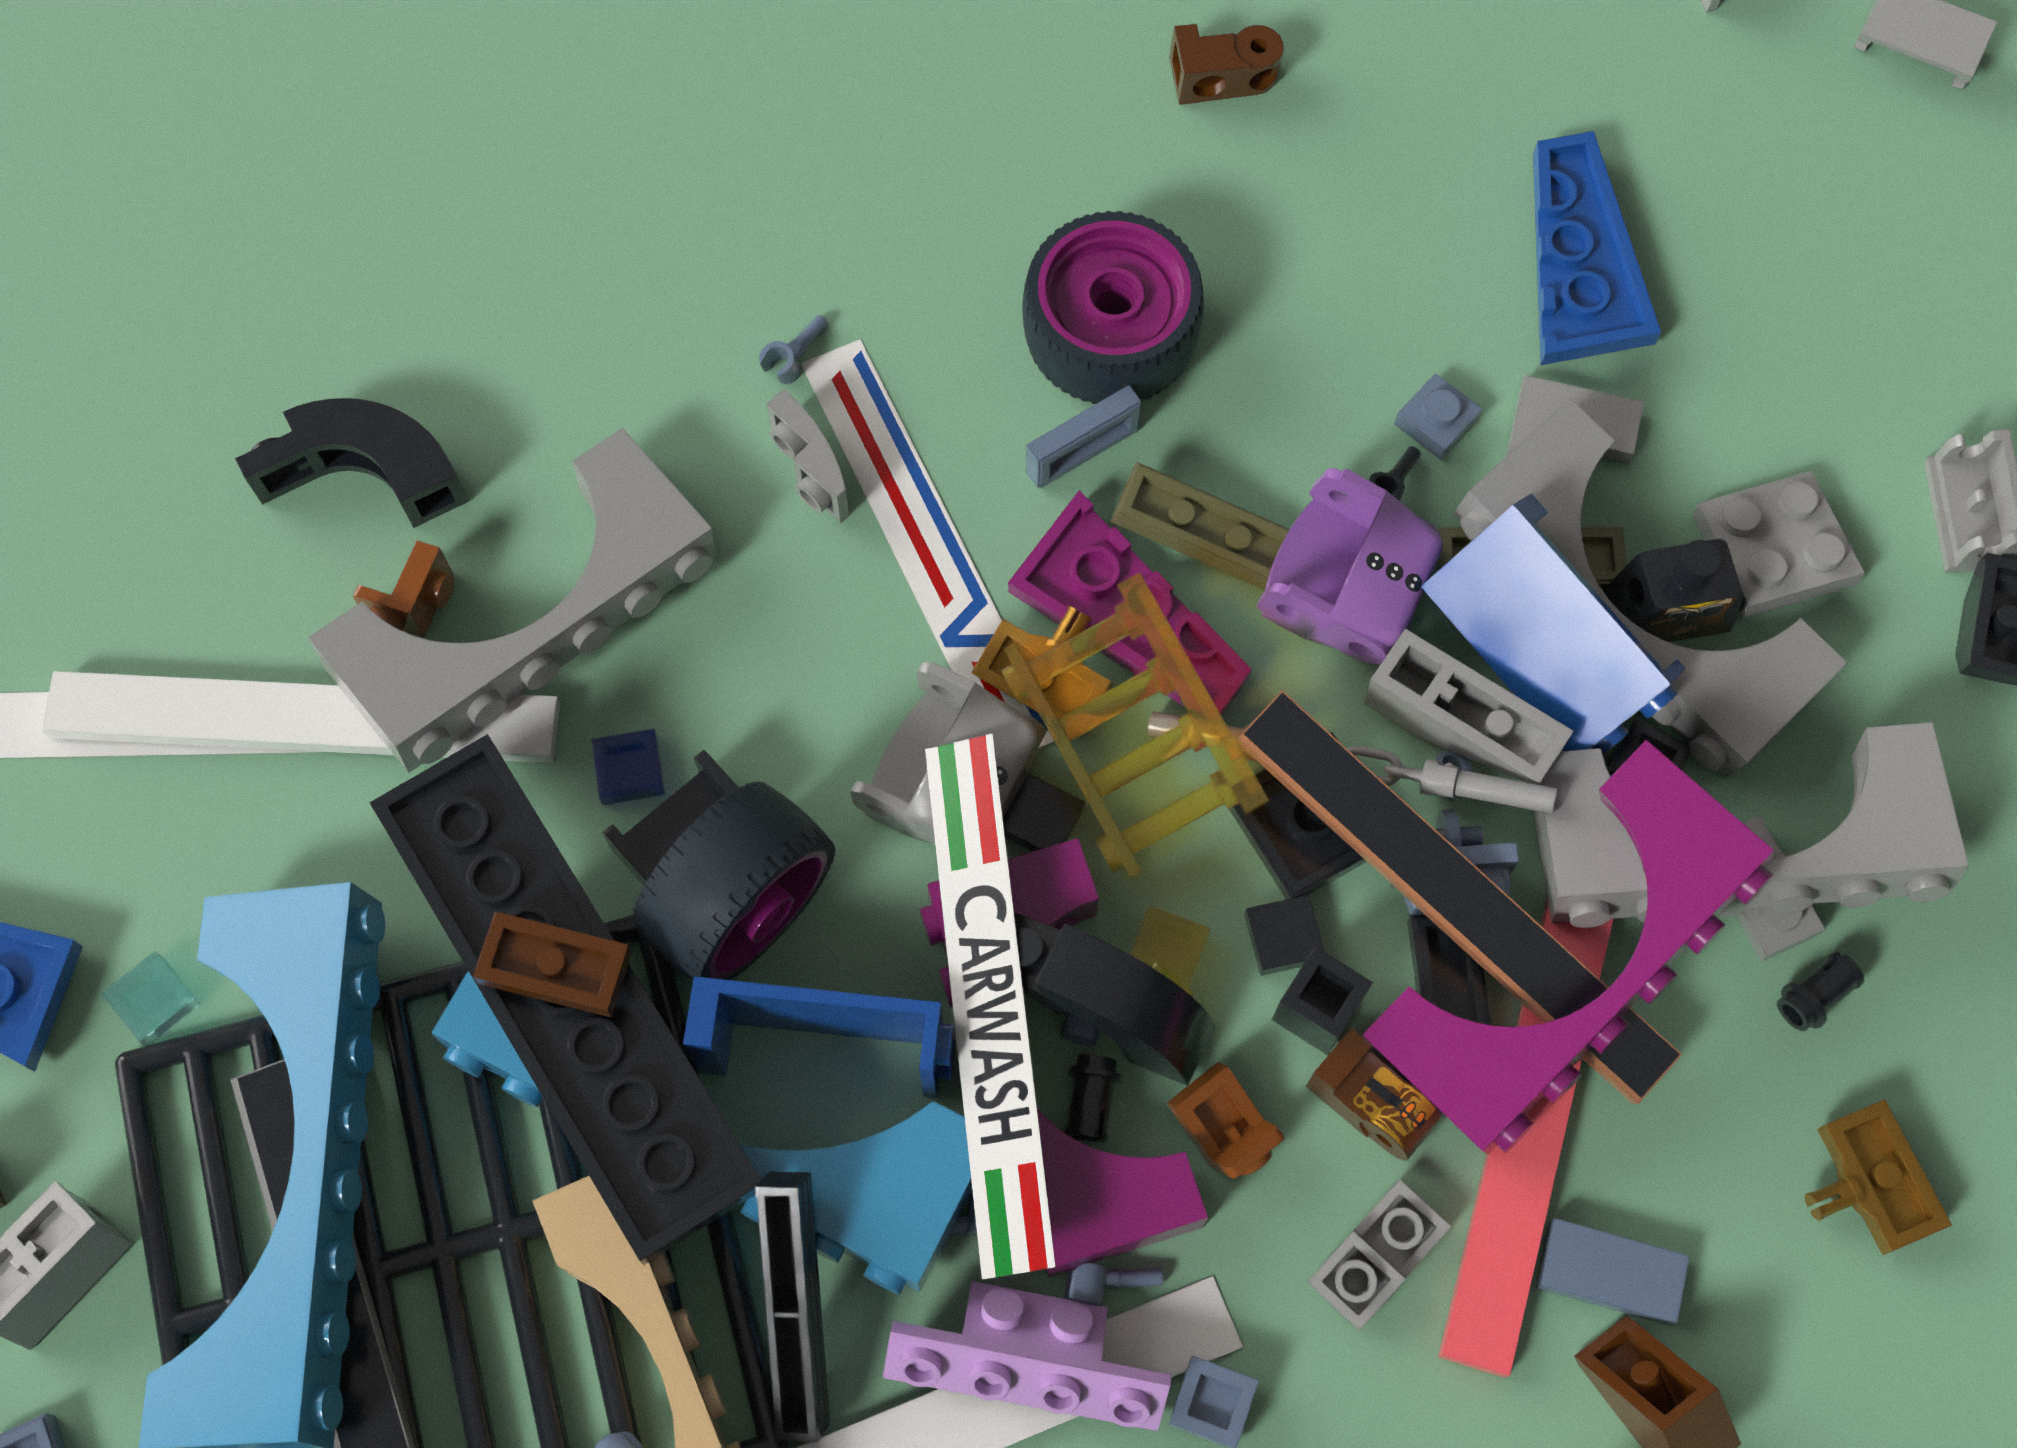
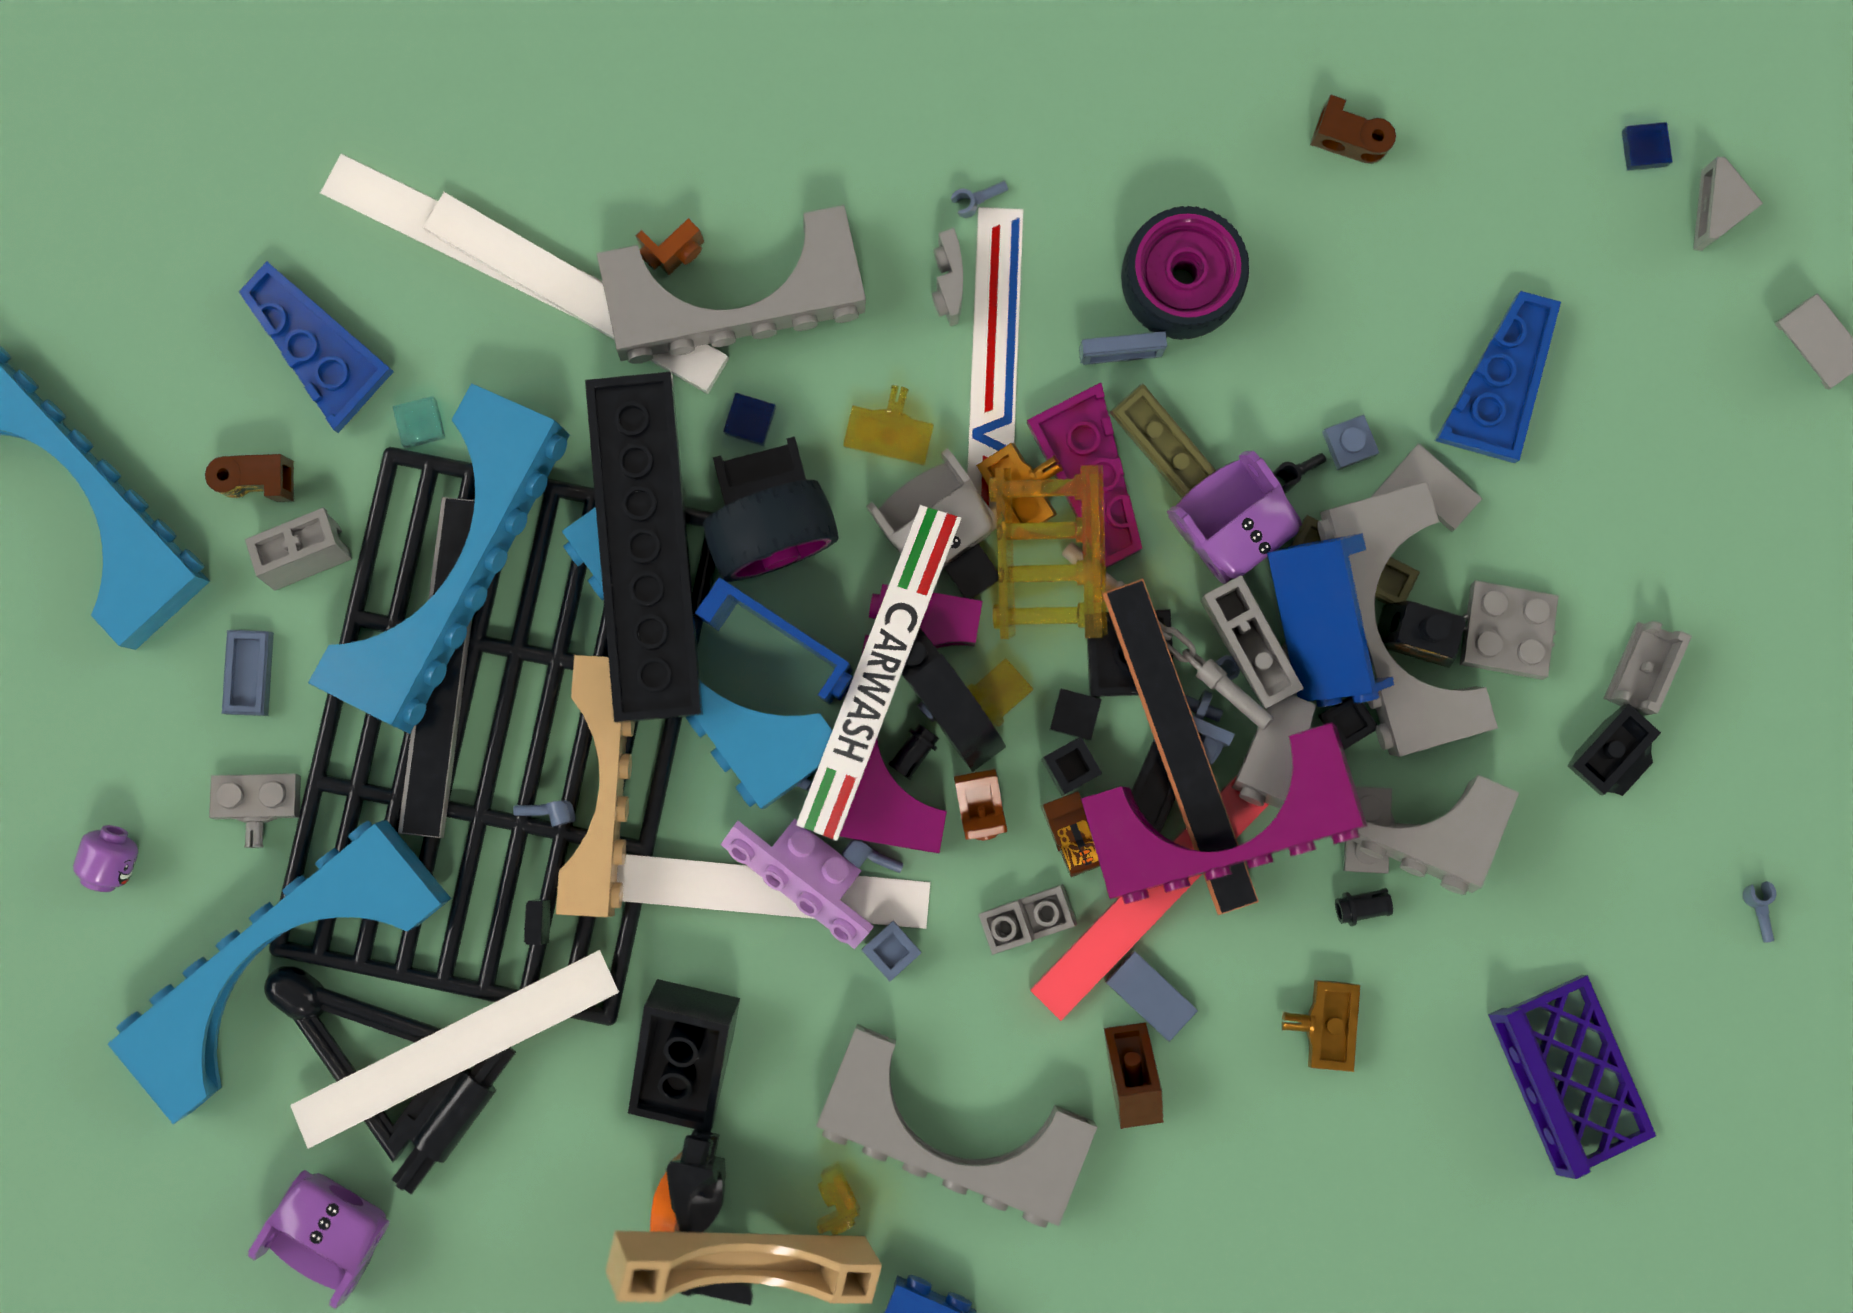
camera: 30 degrees right, 15 degrees up
(359, 438) = (688, 128): black arch -> none
(552, 964) = (642, 532): reddish brown plate -> none
(793, 1306) = (688, 784): black piece -> none
(830, 690) = (889, 431): none -> clear yellow plate

